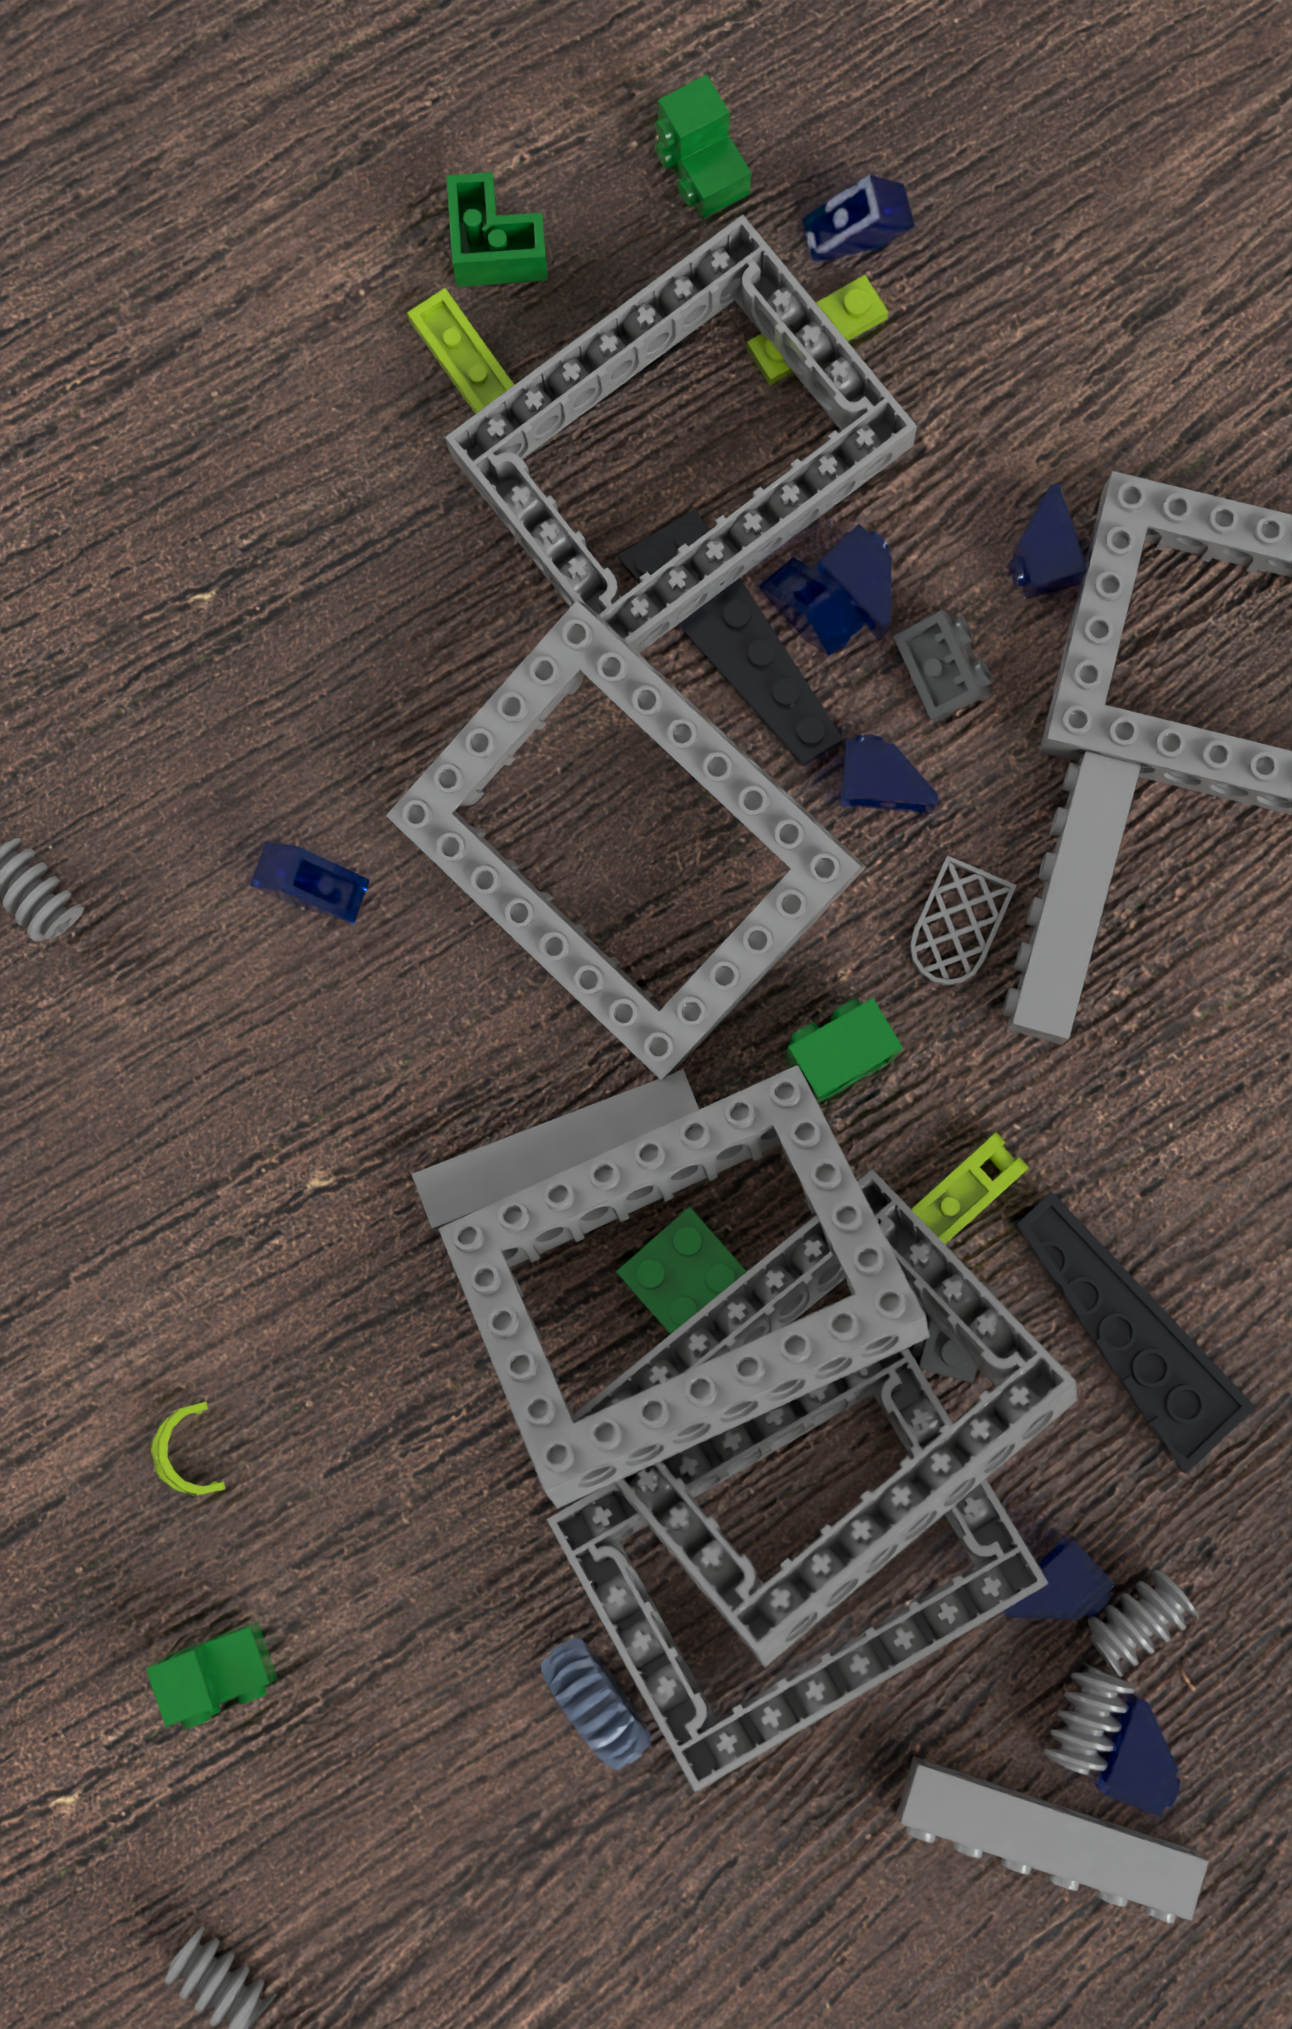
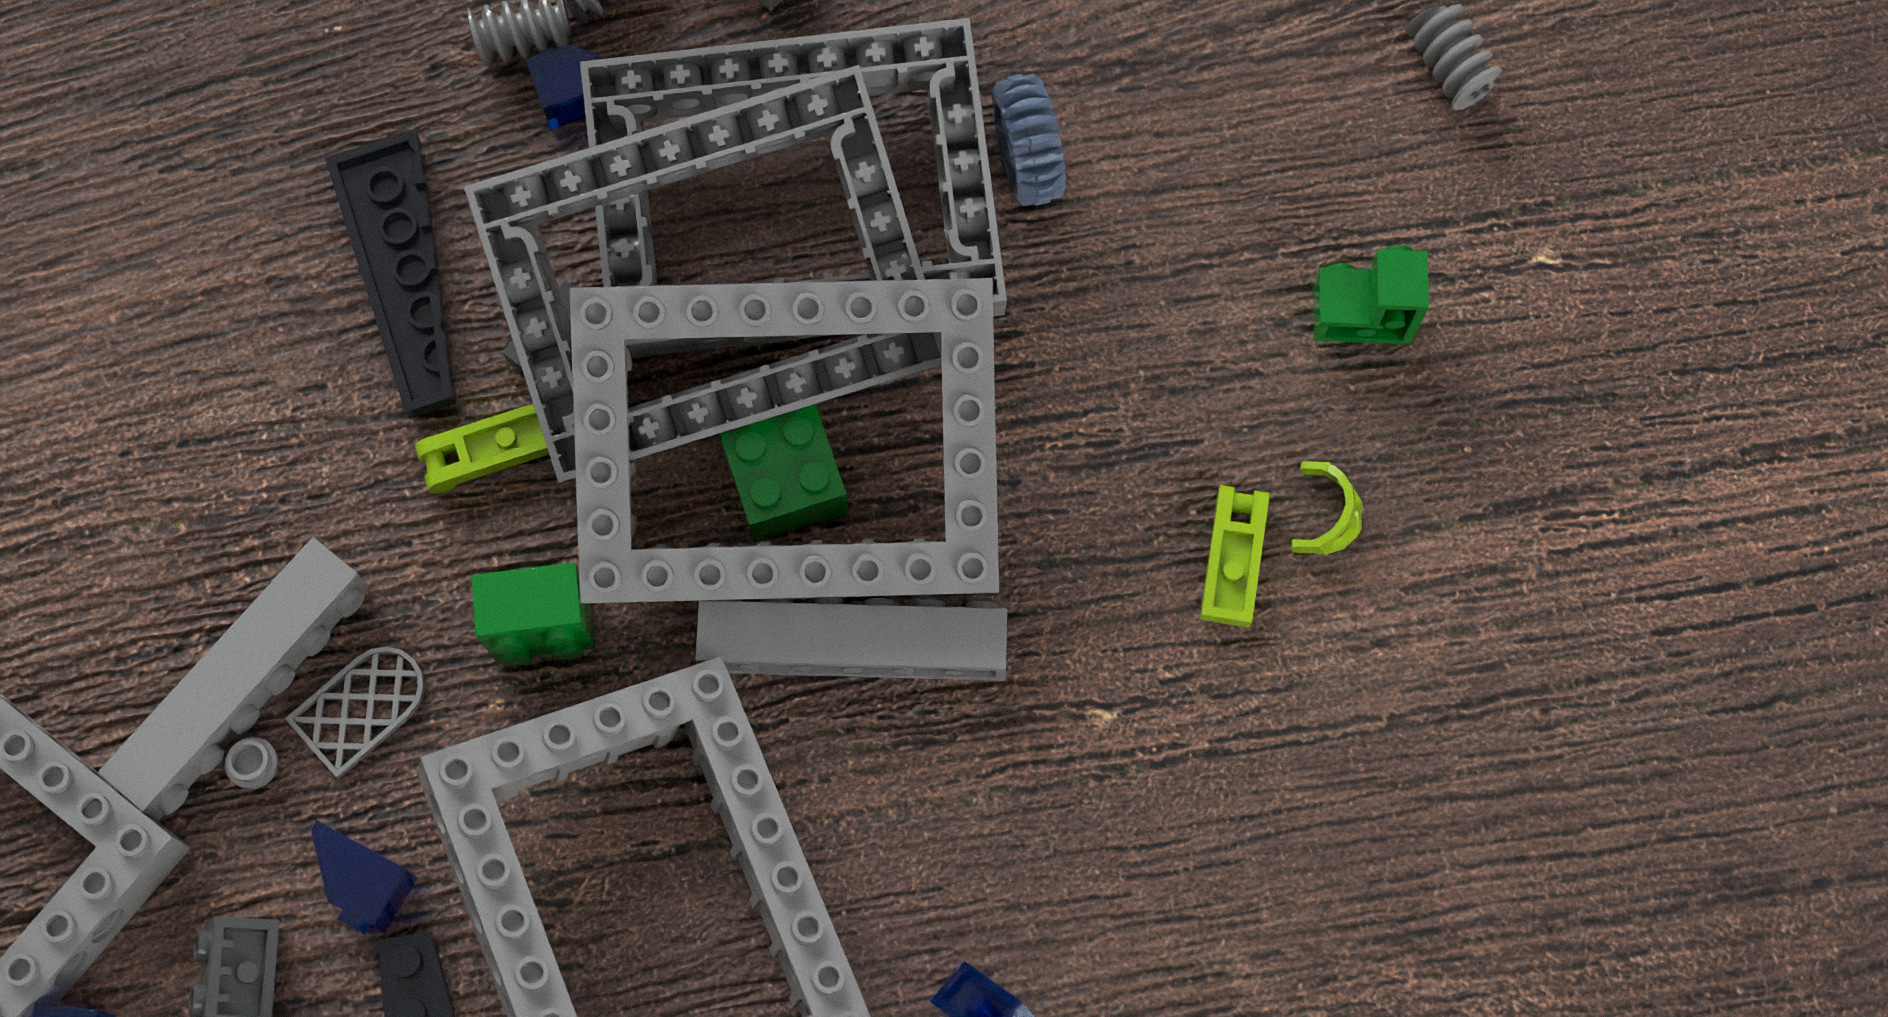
camera: 160 degrees left, 10 degrees down
(253, 1371) = (1234, 558): none -> lime plate
(1023, 836) = (251, 763): none -> light grey plate

